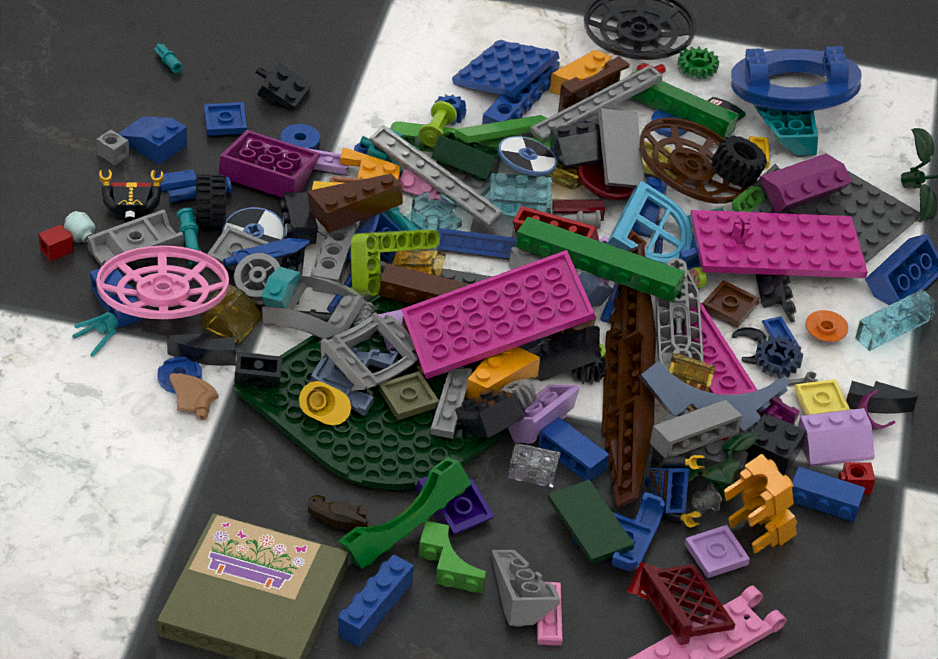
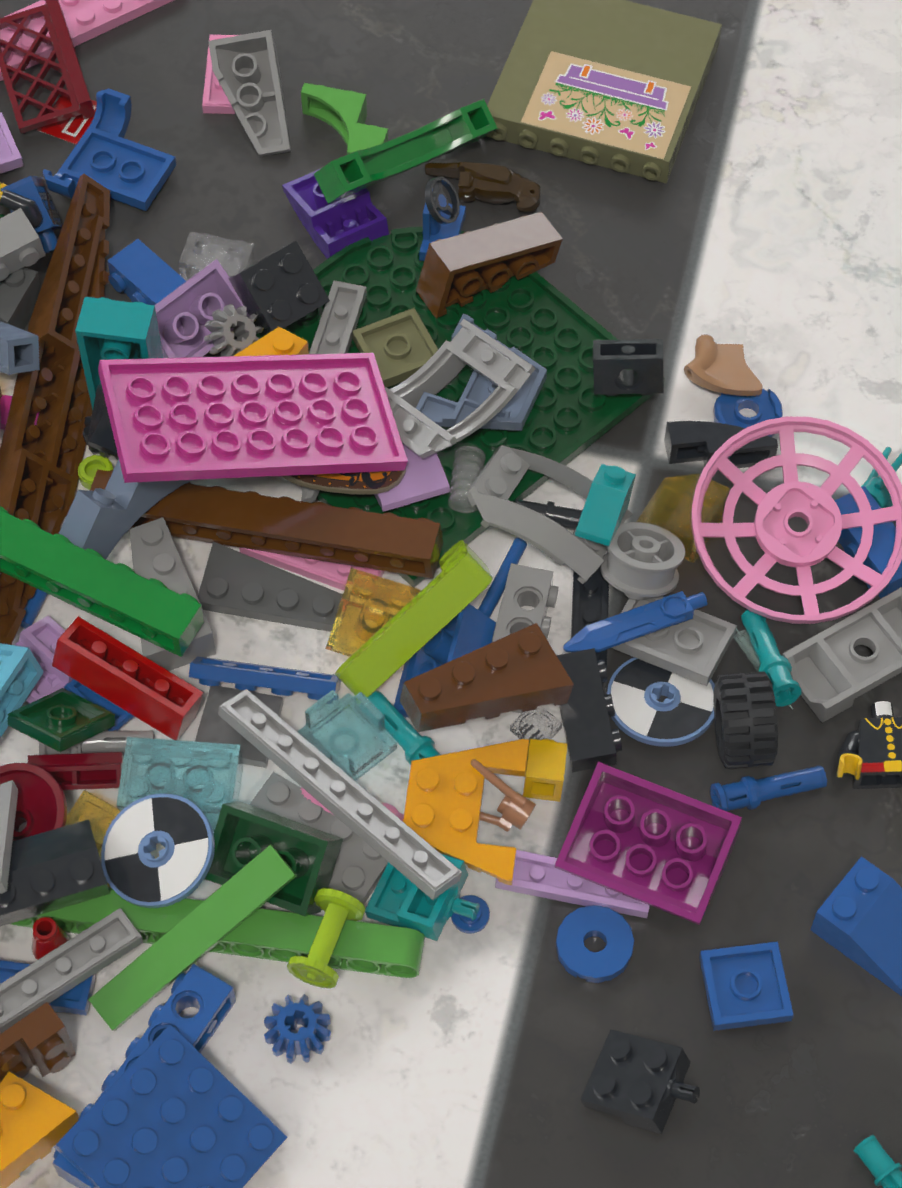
camera: 175 degrees left, 15 degrees up
(178, 180) = (813, 827): blue tile -> none
(324, 403) = (531, 328): yellow piece -> none
(348, 438) = (485, 260): none -> reddish brown wedge
(375, 600) = (445, 69): blue brick -> none
(380, 466) = (439, 217): none -> piece
(586, 361) = (115, 331): none -> teal brick
(590, 521) = (150, 168): dark green tile -> none
(592, 212) = (61, 719): none -> dark green tile

